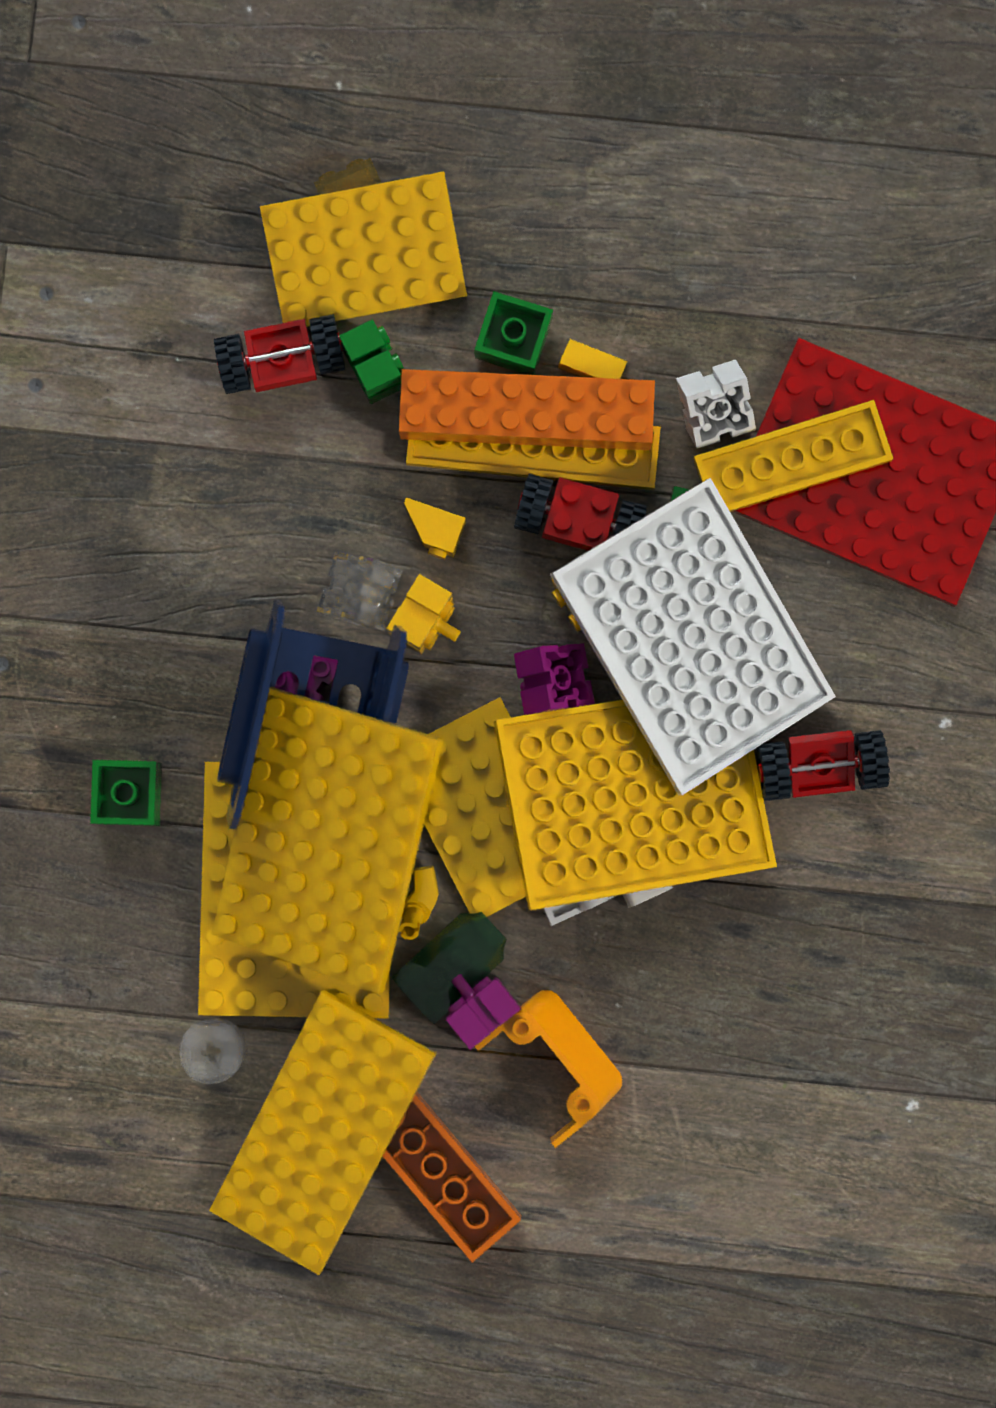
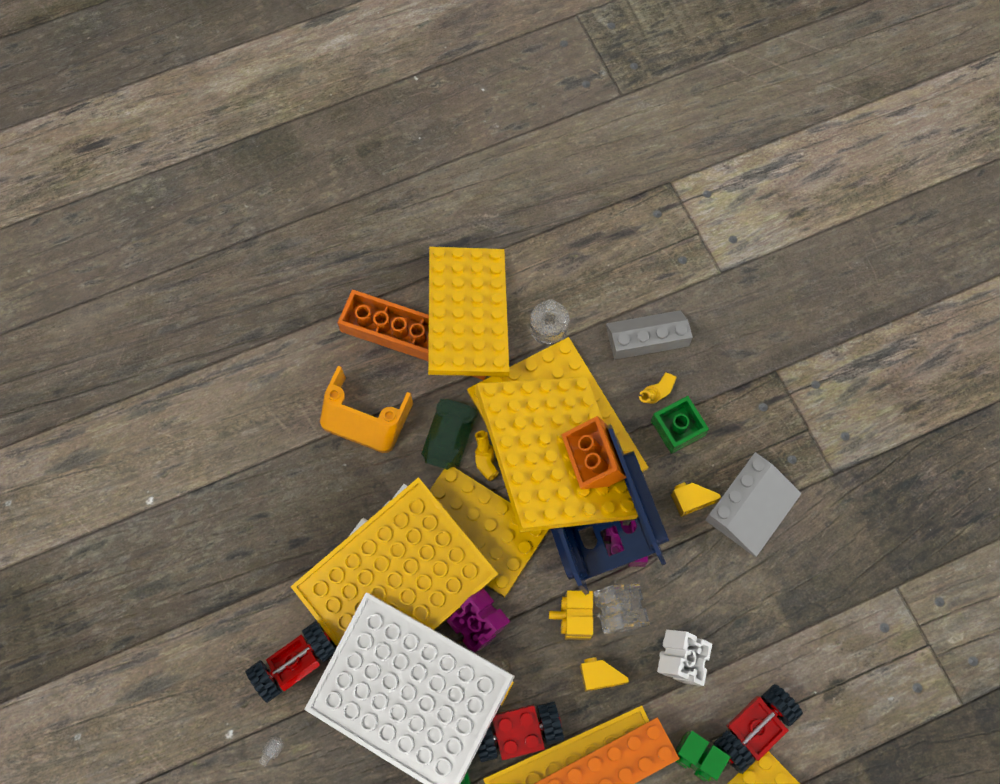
camera: 150 degrees right, 15 degrees down
(80, 955) = (649, 334): none -> light grey slope
(96, 631) = (754, 505): none -> light grey slope
(123, 860) = (658, 391): none -> yellow arm
(173, 684) = (693, 498): none -> yellow slope
(280, 799) = (593, 455): none -> orange slope
(318, 486) = (684, 657): none -> white brick
(480, 1009) = (416, 416): magenta brick -> none
(901, 671) = (271, 750): none -> clear cylinder

